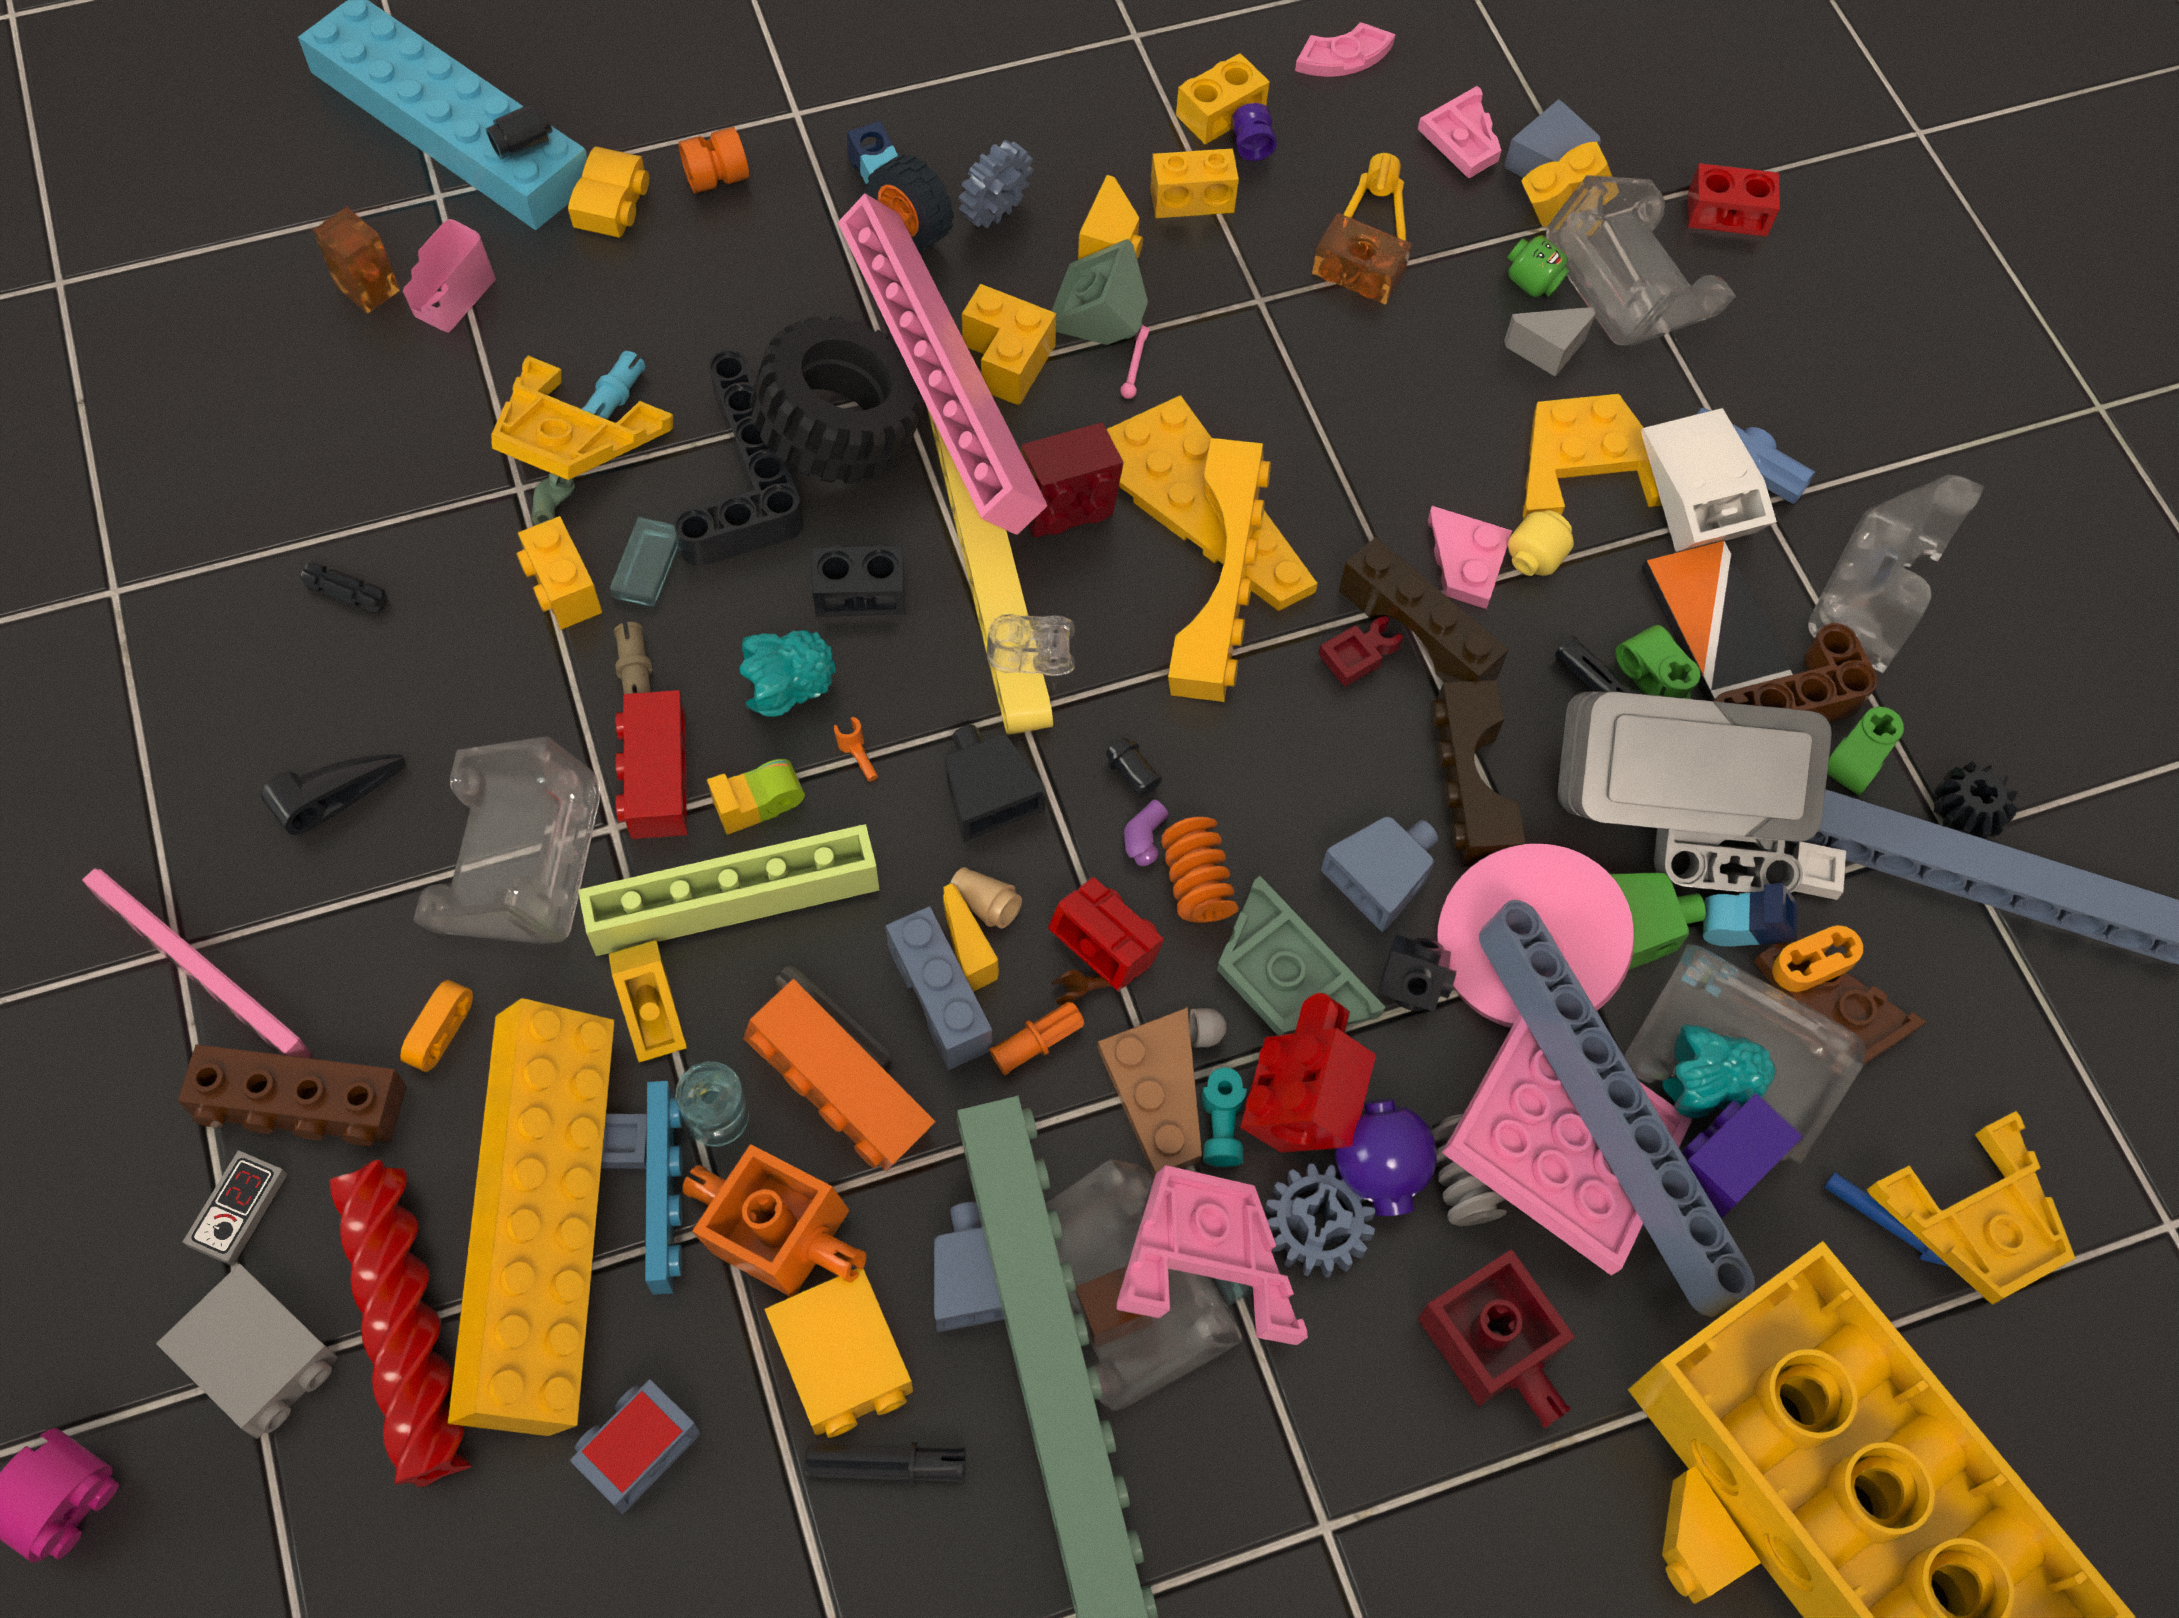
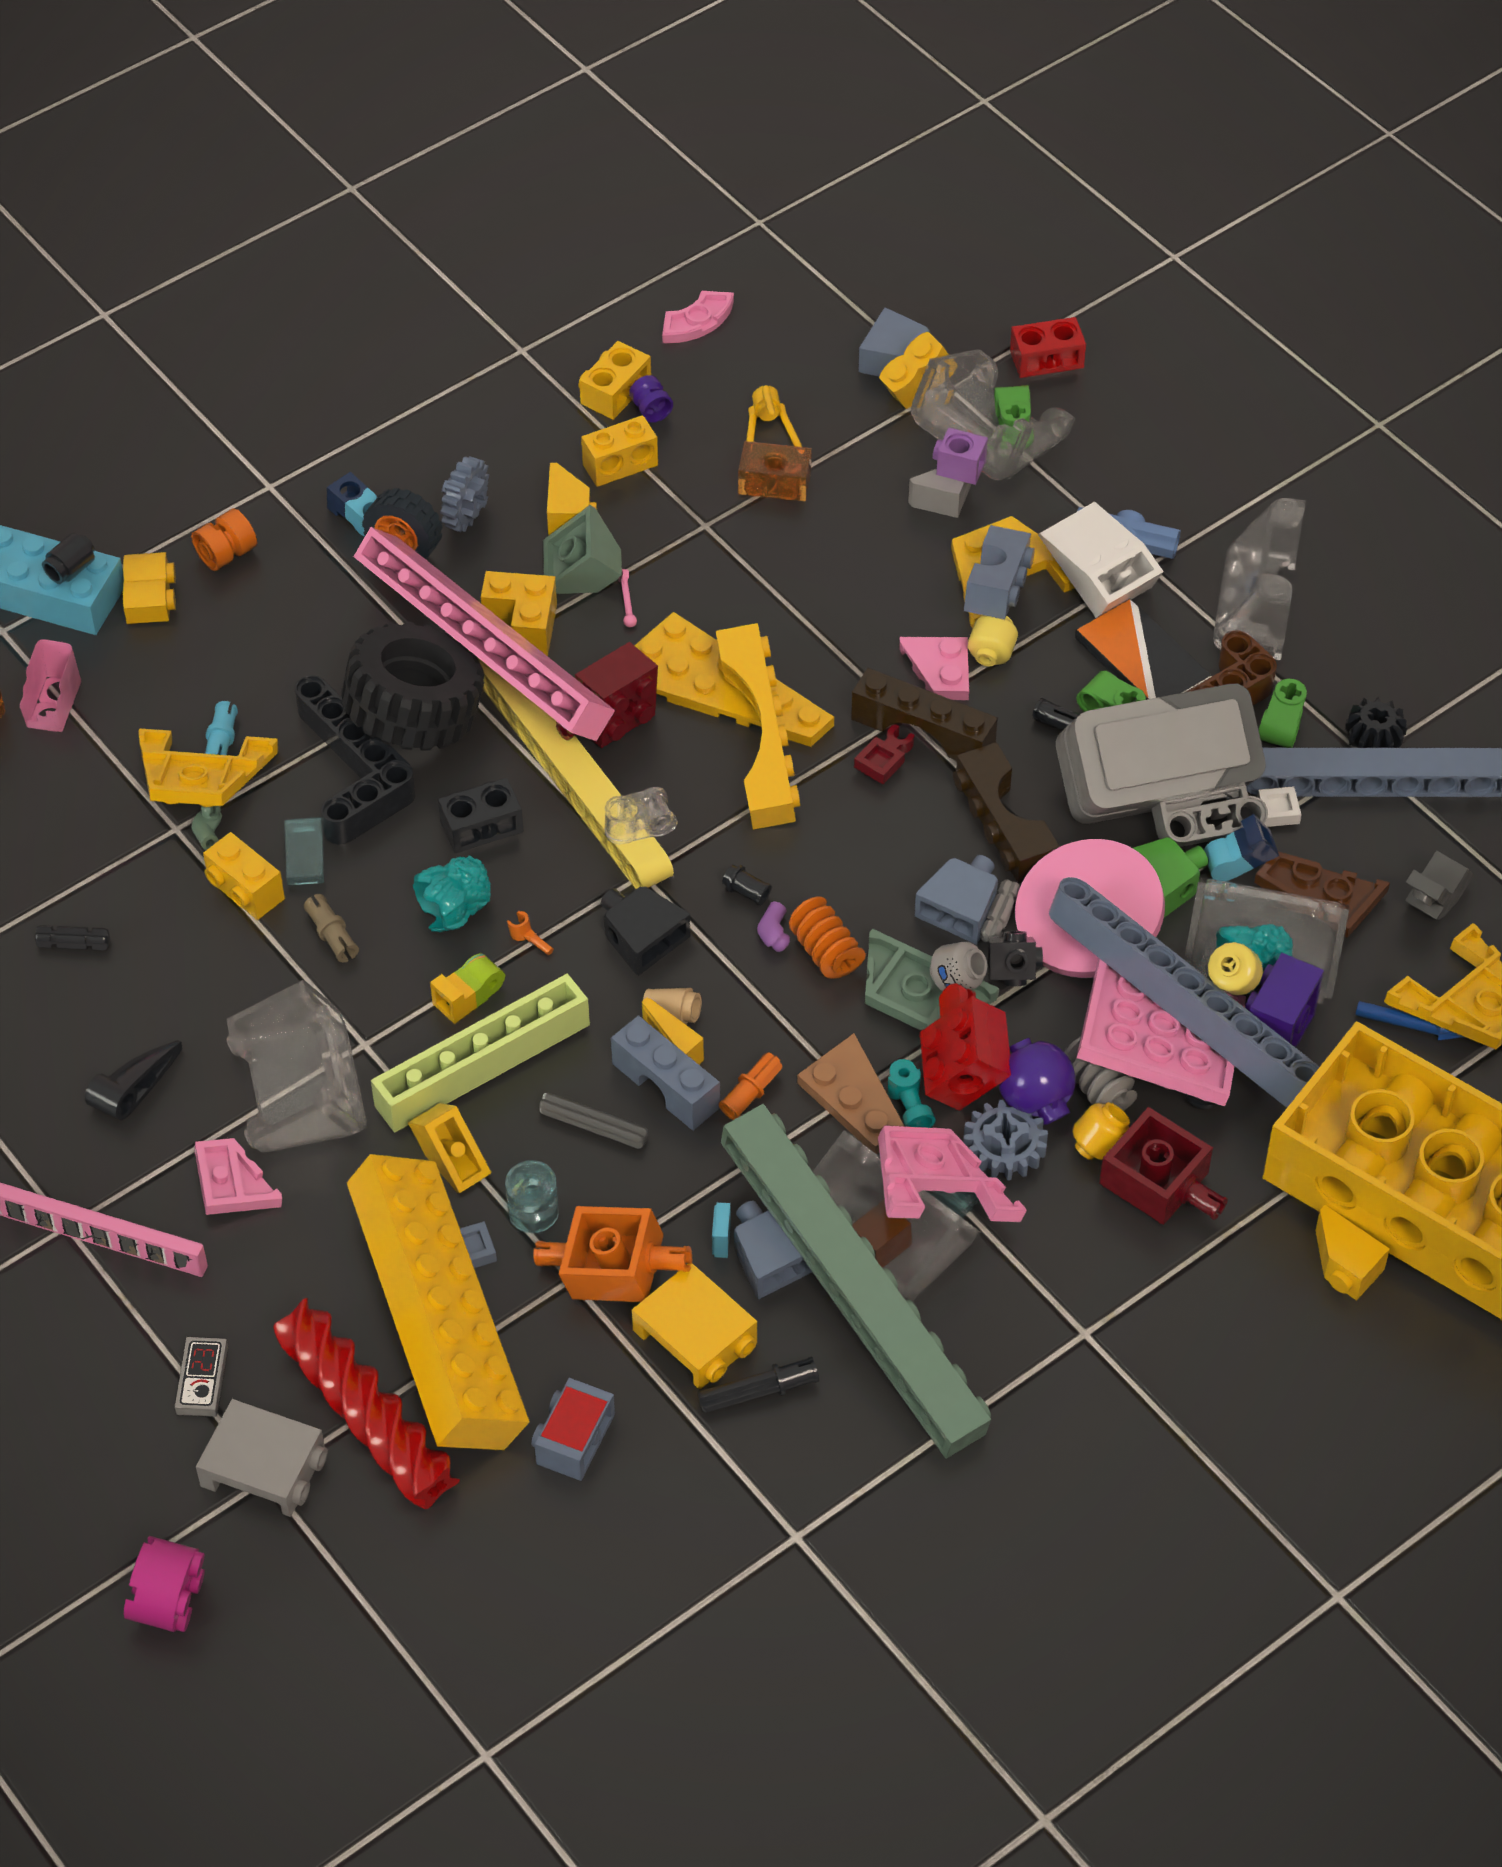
camera: 15 degrees left, 10 degrees down
(292, 1095) = (210, 1287): reddish brown brick -> none
(380, 956) = (231, 1179): none -> bright pink wing
(436, 1025) = (297, 1211): light orange beam -> none
(652, 765) = (379, 988): red brick -> none
(663, 1208) = (512, 1250): dark azure plate -> none
(837, 1076) = (614, 1149): orange wedge -> none
(923, 1226) = (721, 1230): none -> medium azure tile
(1078, 985) = (765, 1042): reddish brown hand -> none
(1106, 933) = (774, 1000): red brick -> none
(1206, 1027) = (873, 1041): light grey hinge -> none
(1341, 969) = (958, 964): none -> light grey head
(1425, 900) = (1000, 910): none -> light grey axle
(1443, 1253) = (1099, 1129): none -> yellow head
(1463, 133) = (817, 354): bright pink wing -> none
(1537, 266) = (914, 438): bright green head -> none
(1564, 476) = (1001, 572): none -> sand blue arch
(1582, 304) = (961, 455): none -> medium lavender brick
(1667, 258) = (1012, 404): none -> bright green piece
(1704, 1094) = (1239, 979): none -> light yellow head
(1821, 967) = (1302, 866): light orange beam -> none
(1987, 1047) = (1438, 885): none -> dark grey brick

